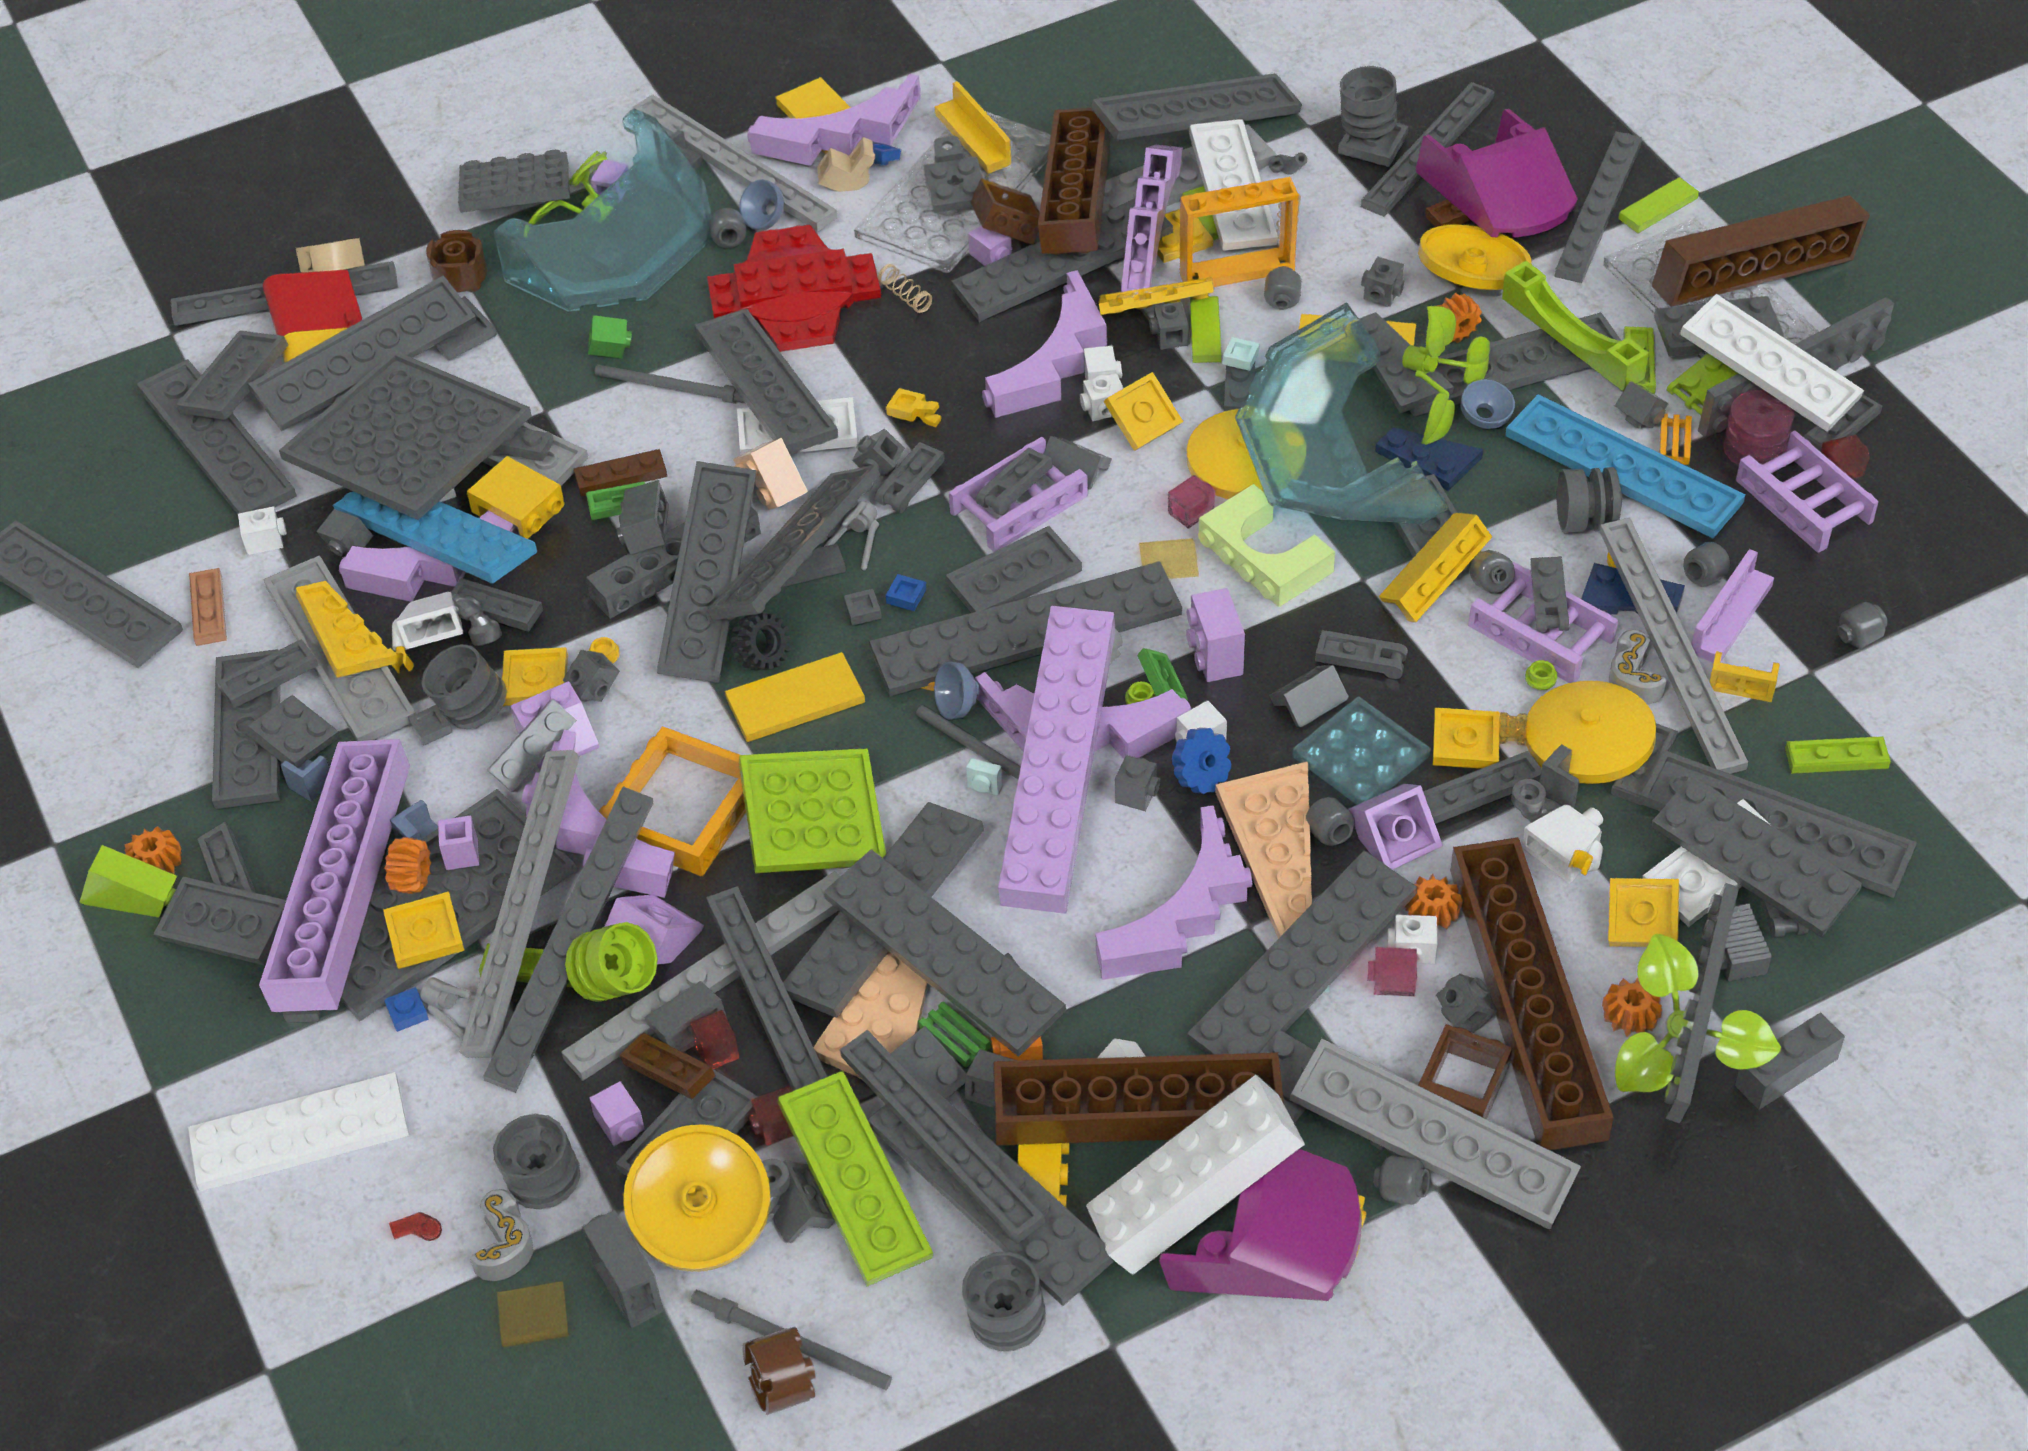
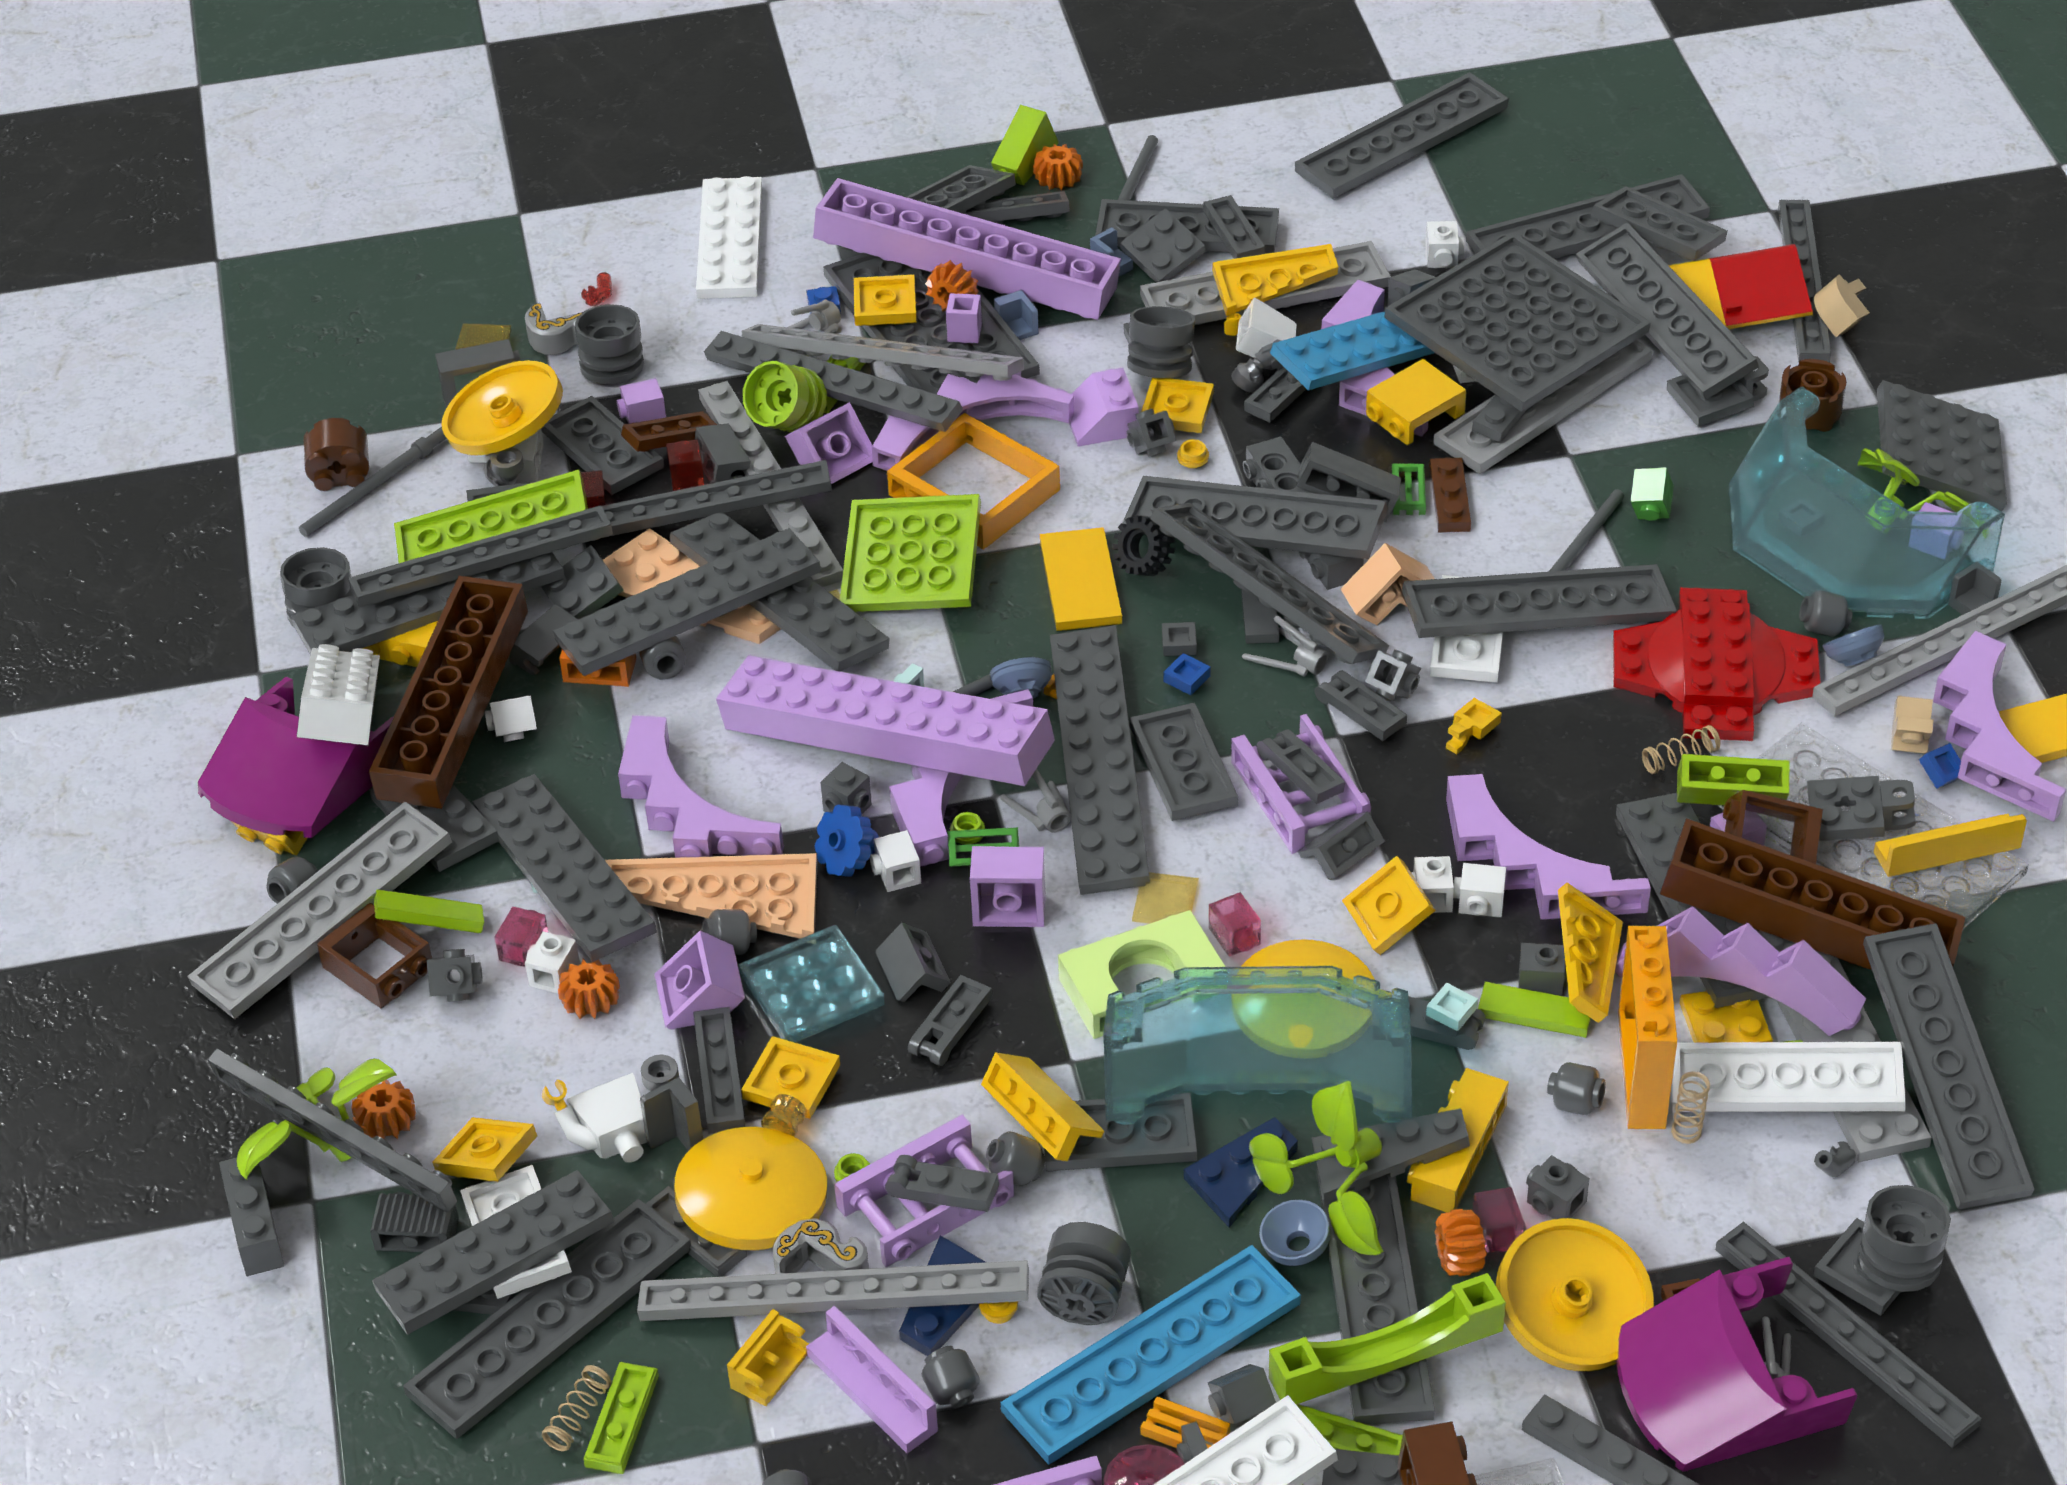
camera: 105 degrees right, 5 degrees down
(149, 794) = (1139, 168): none -> dark grey bar
(207, 606) = (1359, 214): nougat tile -> none
(531, 745) = (1085, 387): plate -> none
(958, 234) = (1716, 778): none -> lime brick
(1402, 1044) = (428, 911): none -> lime tile
(1413, 307) = (1498, 1218): none -> clear pink brick
(1531, 995) = (440, 1024): reddish brown brick -> none
(1817, 773) = (560, 1433): none -> tan piece

